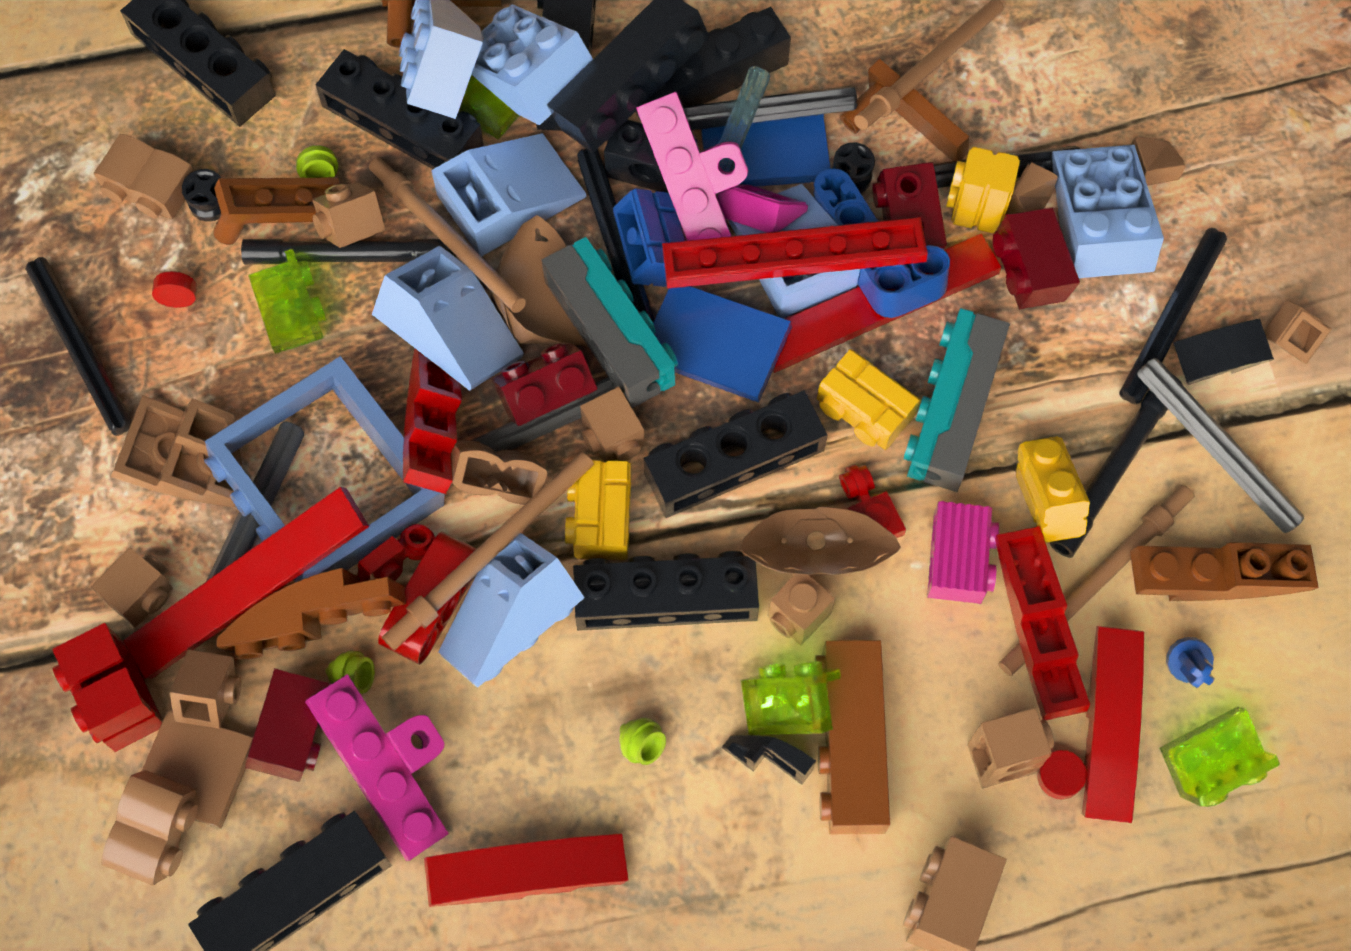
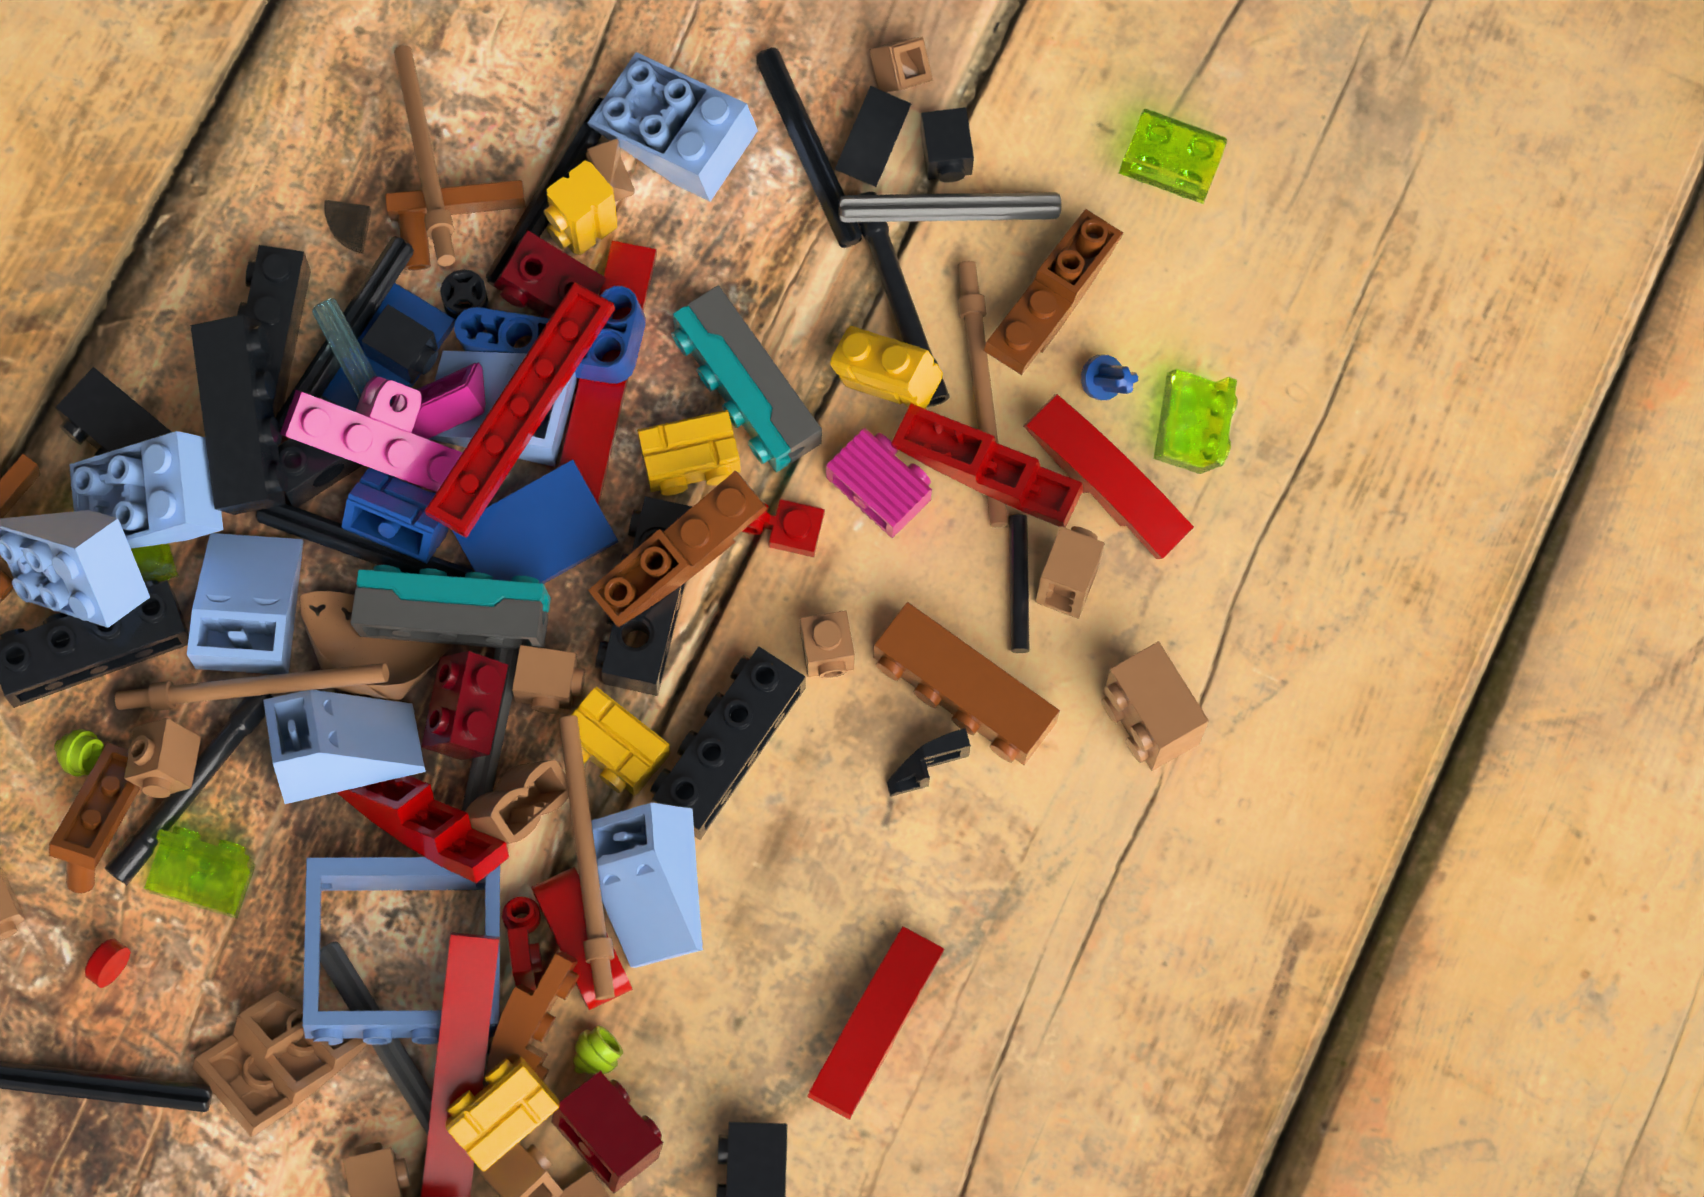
camera: 55 degrees left, 5 degrees up
(200, 185) = (23, 864): black wheel -> none
(235, 631) = (500, 1112): none -> yellow brick
(383, 763) = (701, 1073): dark pink plate -> none
(642, 741) = (838, 854): lime plate -> none
(778, 147) = (401, 344): none -> black brick
(778, 442) = (679, 552): none -> dark orange slope
(788, 700) = (899, 711): clear neon green bracket -> none
(836, 525) = (803, 584): medium nougat piece -> none
(842, 61) = (348, 223): none -> clear smoke tile
(970, 720) = (1019, 583): none -> black bar
(1035, 258) = (673, 216): dark red brick -> none
(1062, 775) = (1120, 549): red tile -> none
(1158, 160) = (661, 42): medium nougat slope -> none
(1266, 407) = (947, 144): none -> black brick

